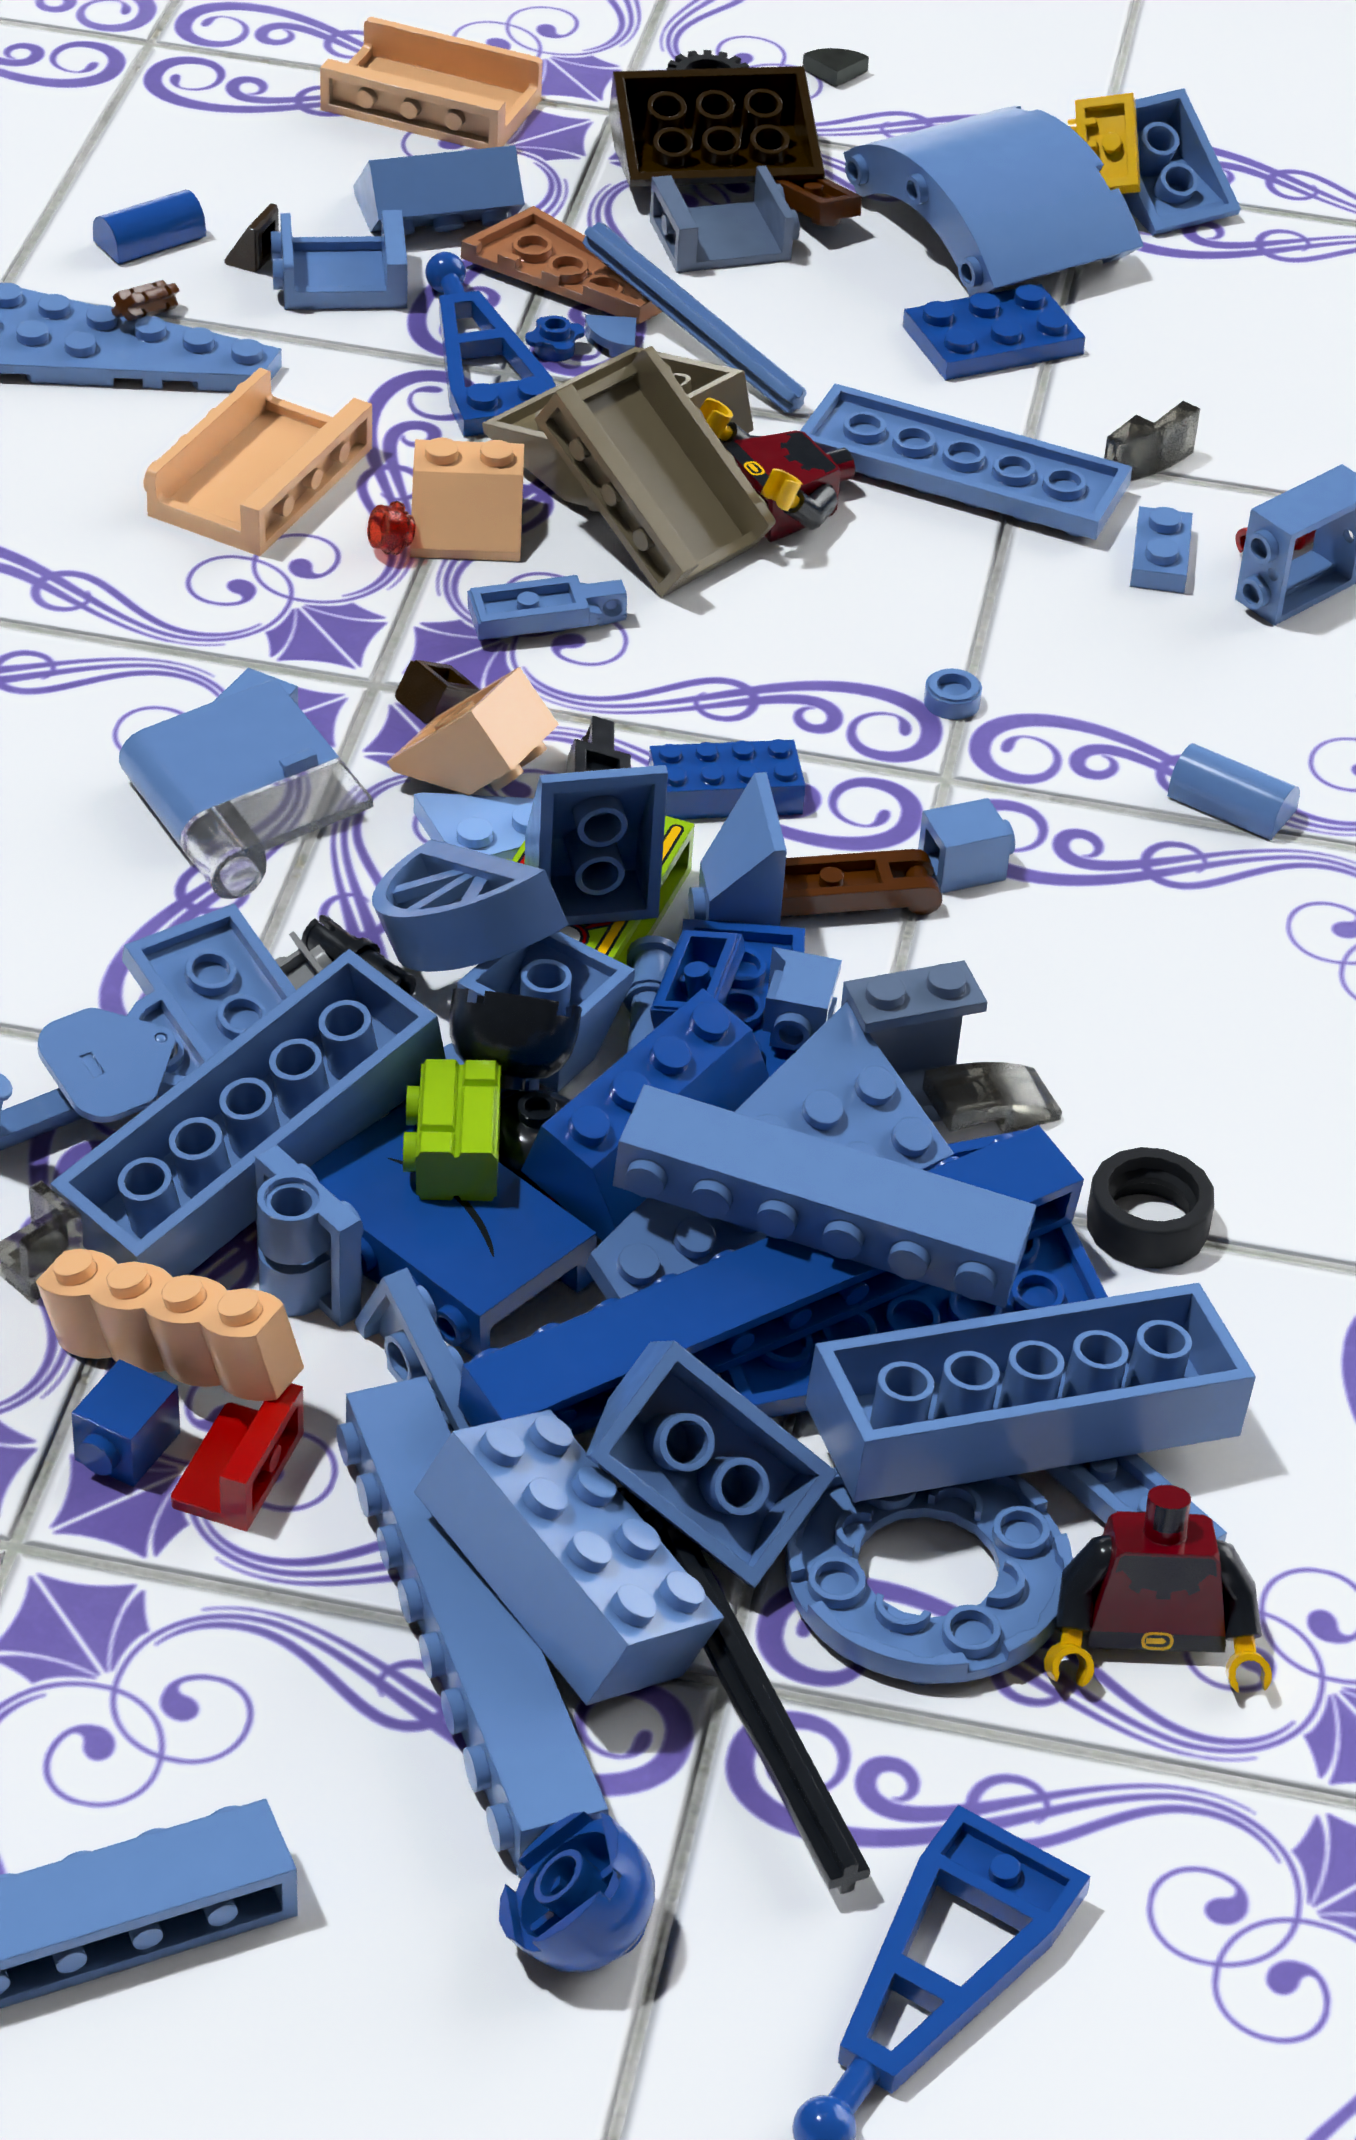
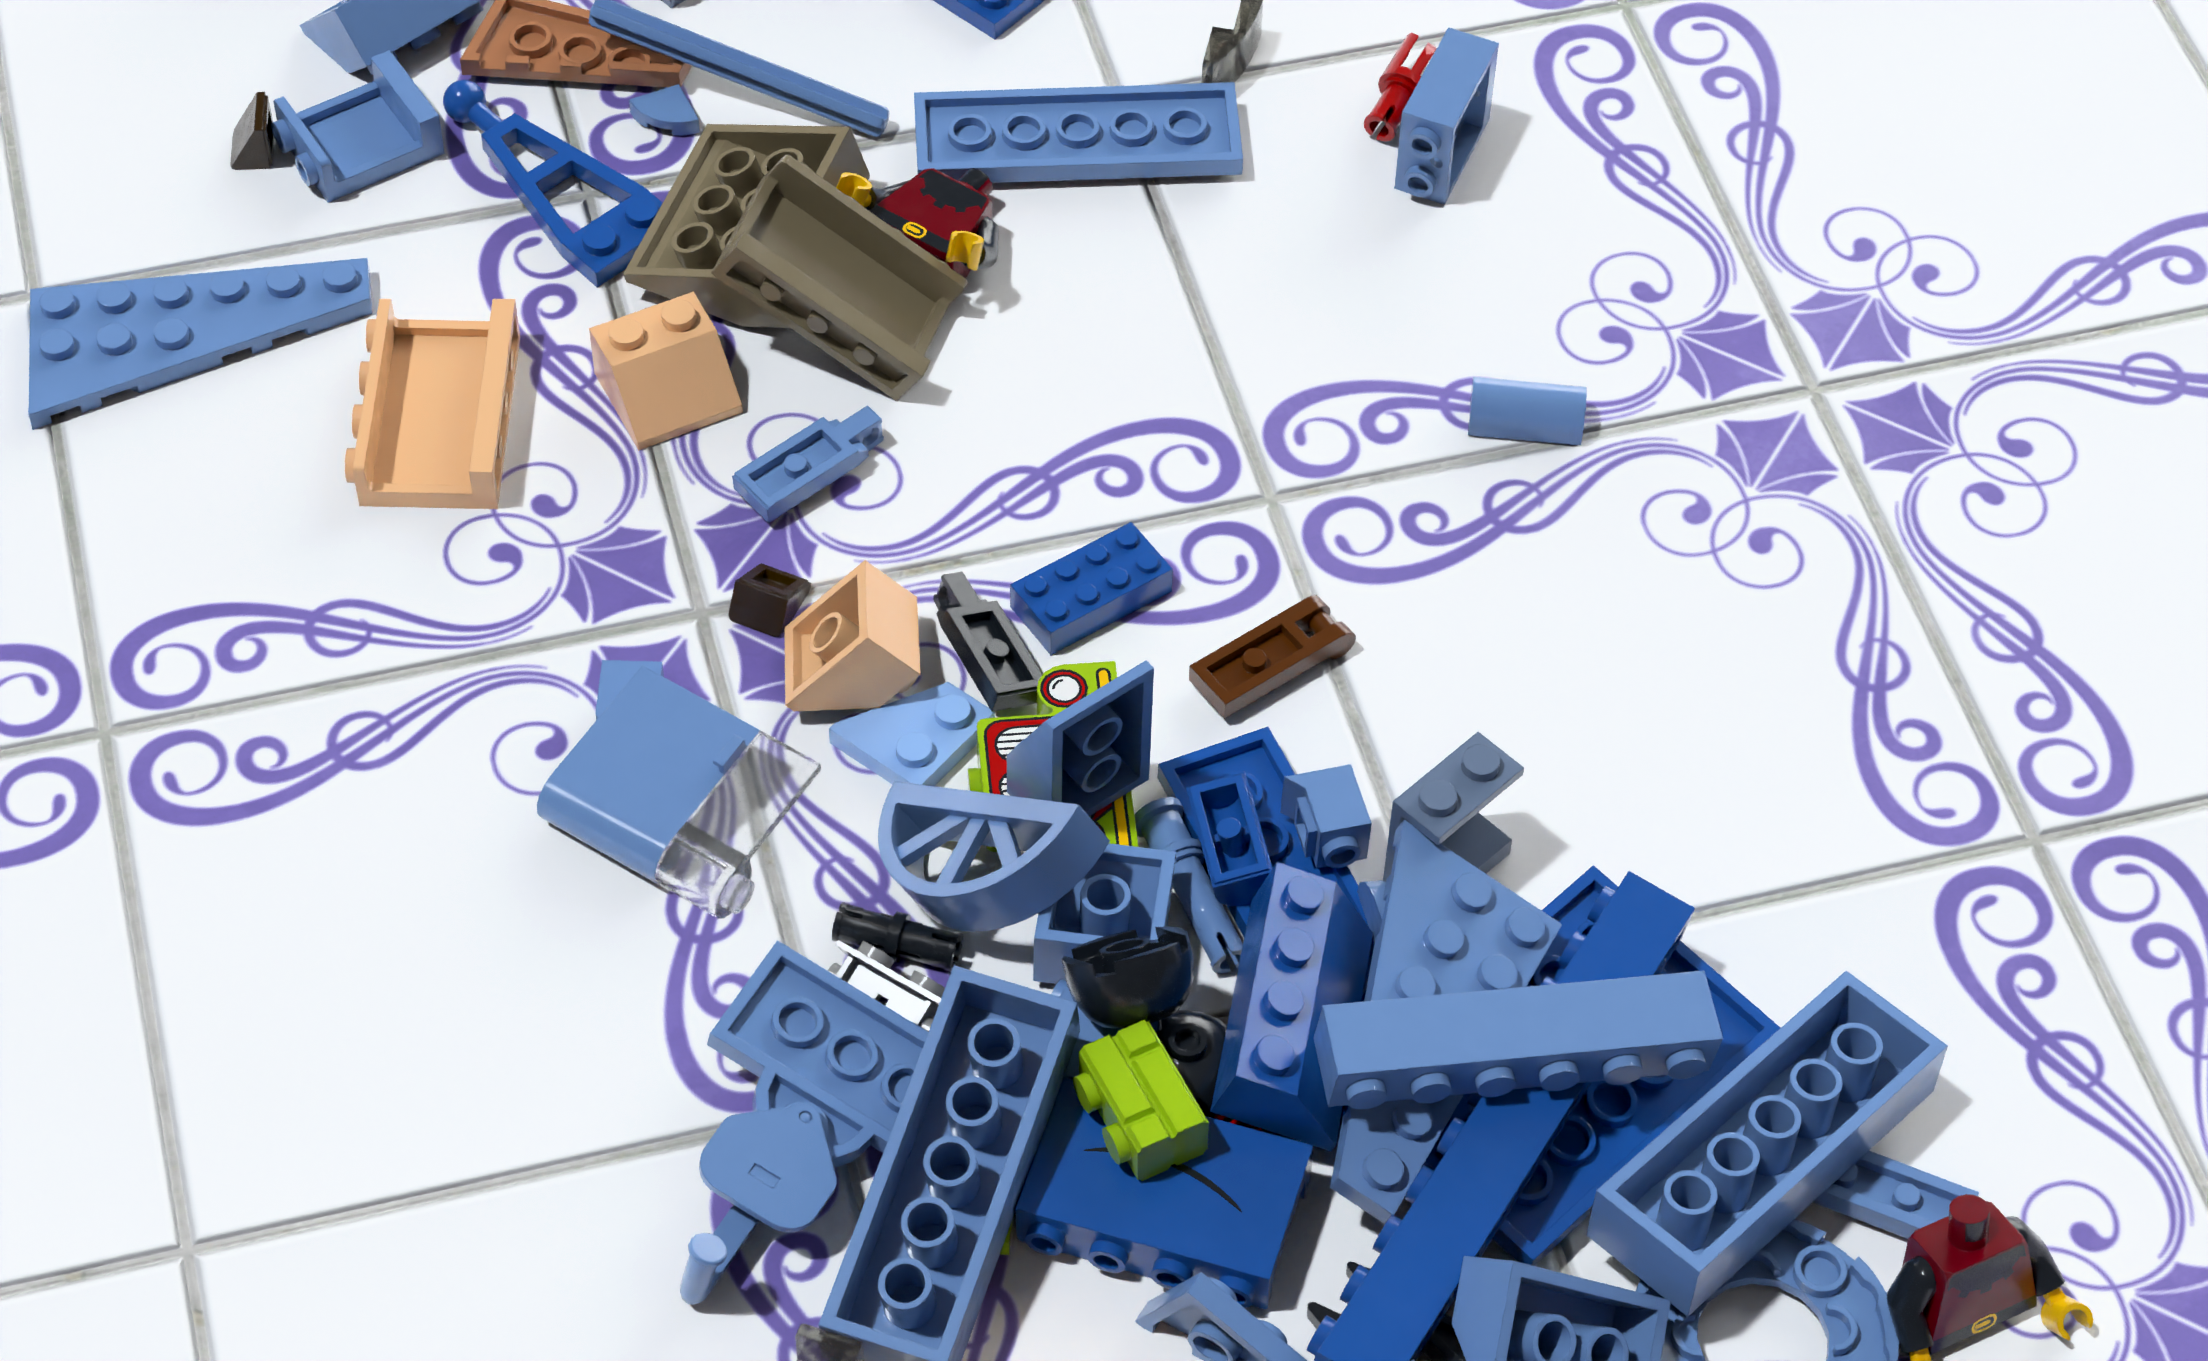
camera: 25 degrees left, 10 degrees up
(145, 300) = (201, 255): reddish brown axle -> none
(150, 226) = (138, 157): blue brick -> none
(306, 1240) = (1067, 1272): medium blue plate -> none
(390, 528) = (613, 432): clear red plate -> none
(554, 338) = (614, 137): blue plate -> none
(744, 864) = (1193, 686): medium blue slope -> none
(952, 694) = (1223, 402): medium blue tile -> none
(966, 844) = (1345, 570): medium blue brick -> none
(989, 1092) = (1524, 833): clear smoke slope -> none
(1149, 1241) = (1736, 853): black tyre -> none
(1161, 549) = (1304, 161): medium blue plate -> none

